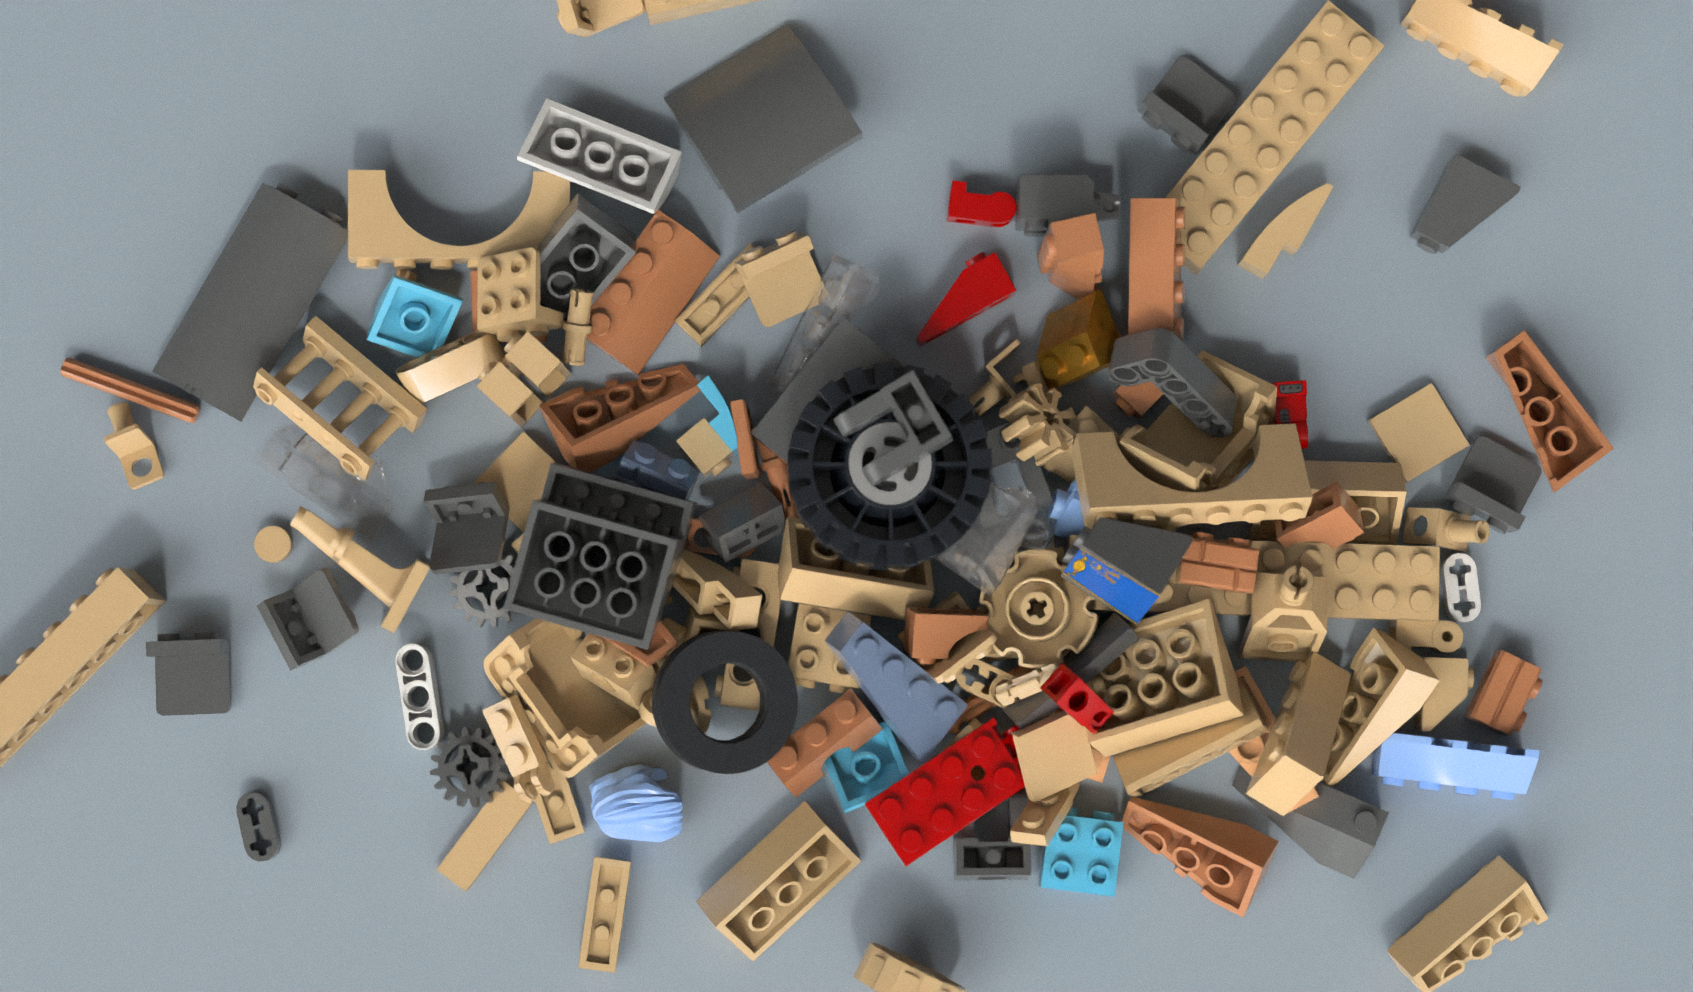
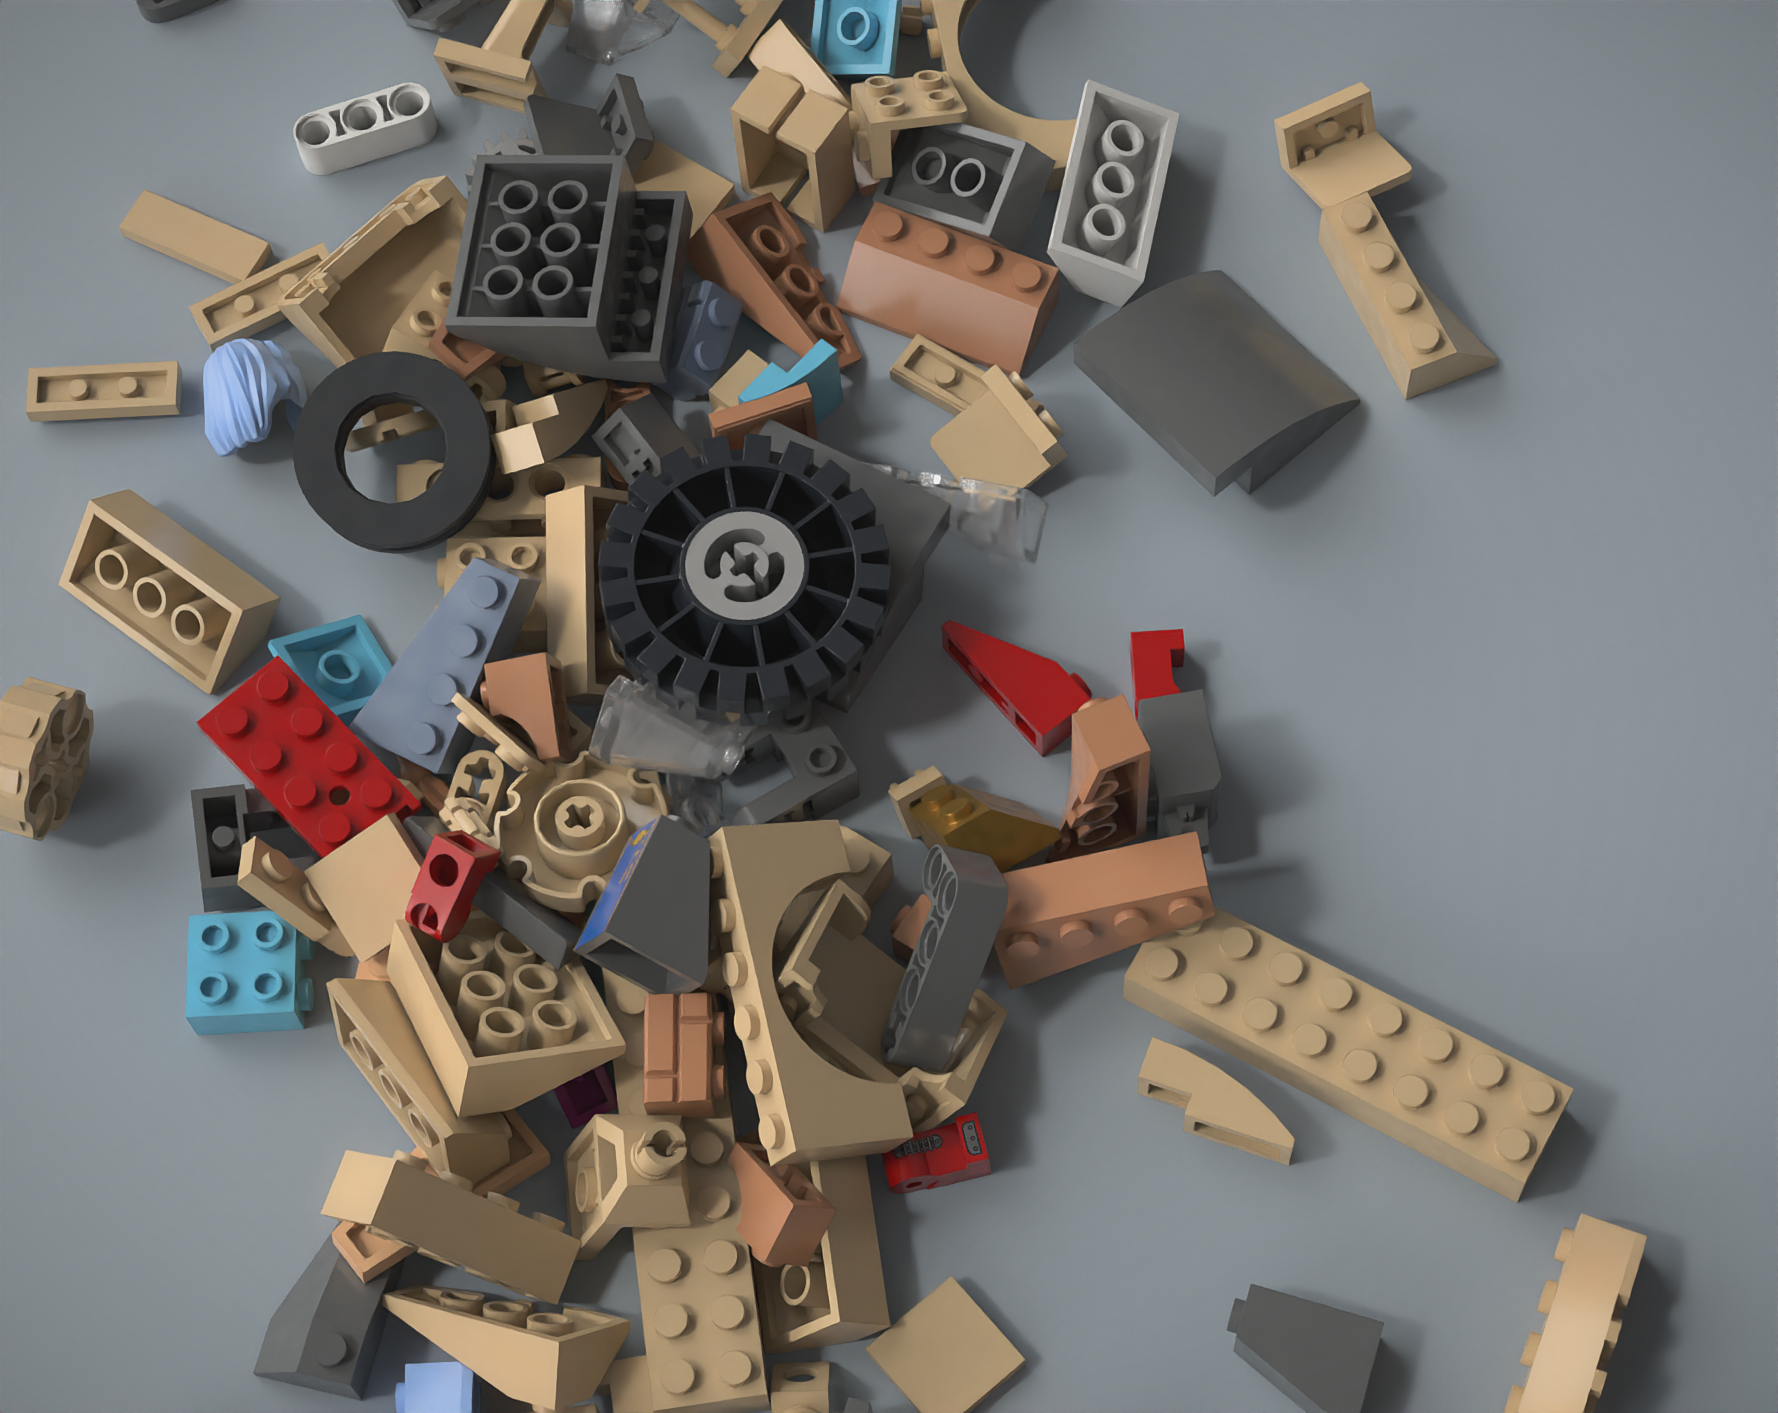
camera: 85 degrees right, 20 degrees down
(471, 783) = (280, 200): dark grey gear -> none
(519, 748) = (307, 240): tan hinge -> none
(577, 327) = (876, 194): tan pin -> none
(836, 727) = (336, 577): nougat arch -> none
(914, 414) = (809, 571): dark grey brick -> none
(996, 387) = (907, 748): tan bracket -> none
(1038, 424) = (856, 759): tan gear -> none
(1187, 105) = (1370, 928): dark grey bracket -> none
(1214, 852) = (271, 1164): nougat wedge -> none

